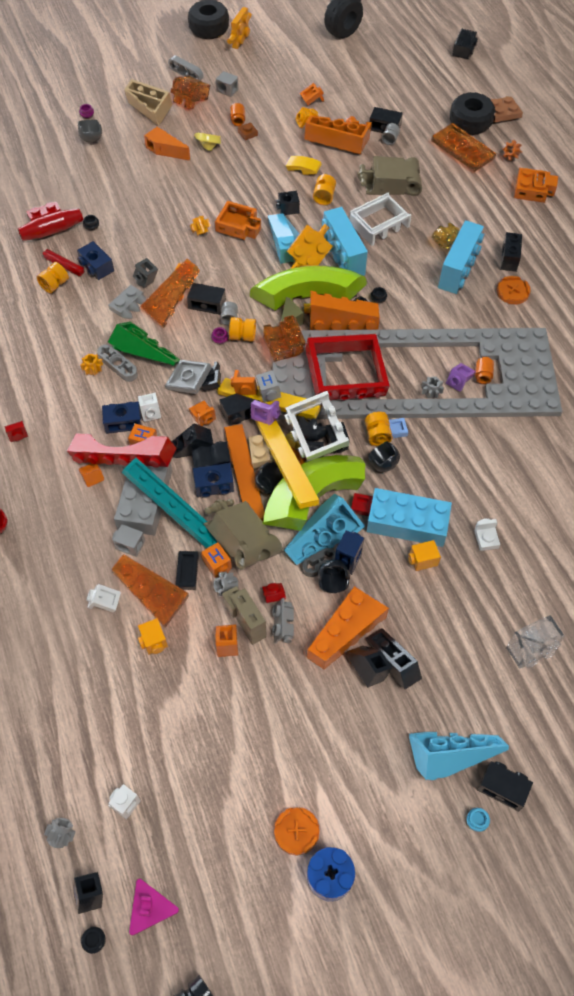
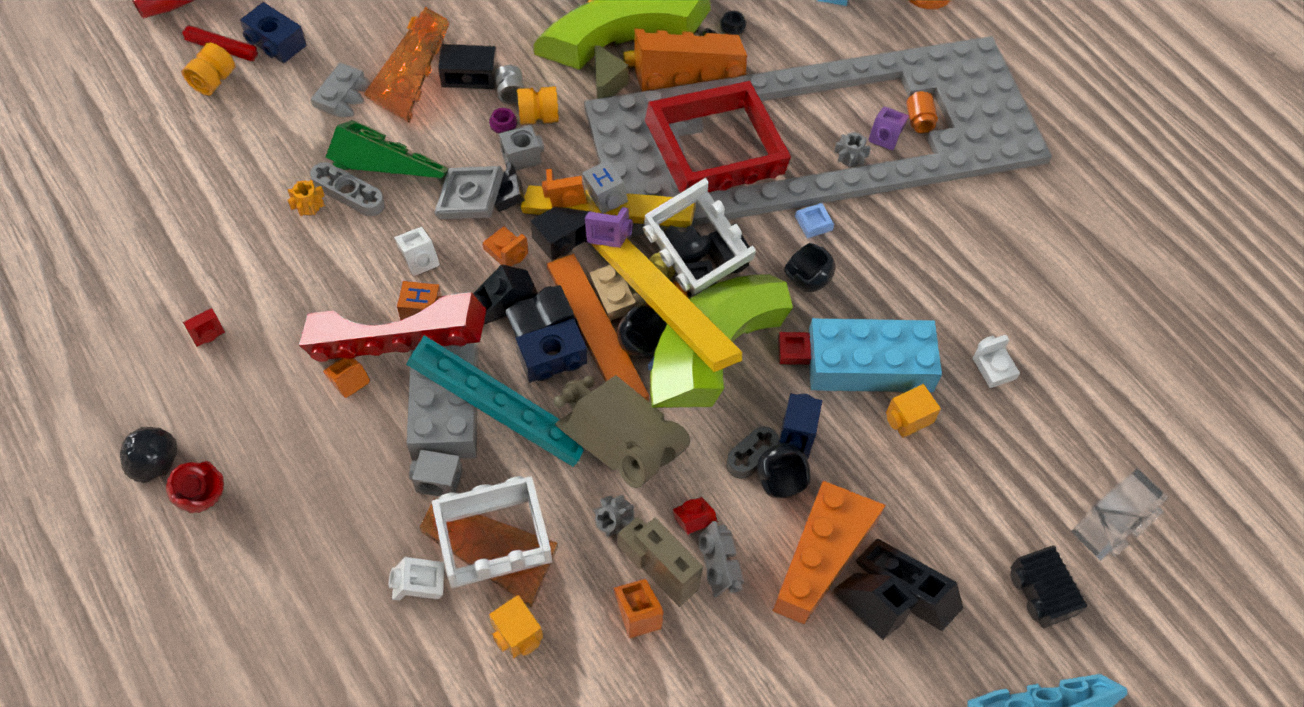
camera: 15 degrees left, 0 degrees up
(121, 417) = (366, 285): dark blue brick -> none
(143, 277) = (355, 45): dark grey brick -> none
(149, 559) = (482, 500): none -> white window
(187, 570) = (549, 503): black tile -> none
(216, 559) = (589, 479): orange brick -> none
(226, 353) = (521, 147): none -> light grey brick
(284, 340) = (610, 111): clear orange hips -> none
(324, 529) = (751, 396): medium azure wedge -> none
(378, 428) = (789, 225): light orange wheel -> none
(478, 677) = (1047, 587): none -> black brick

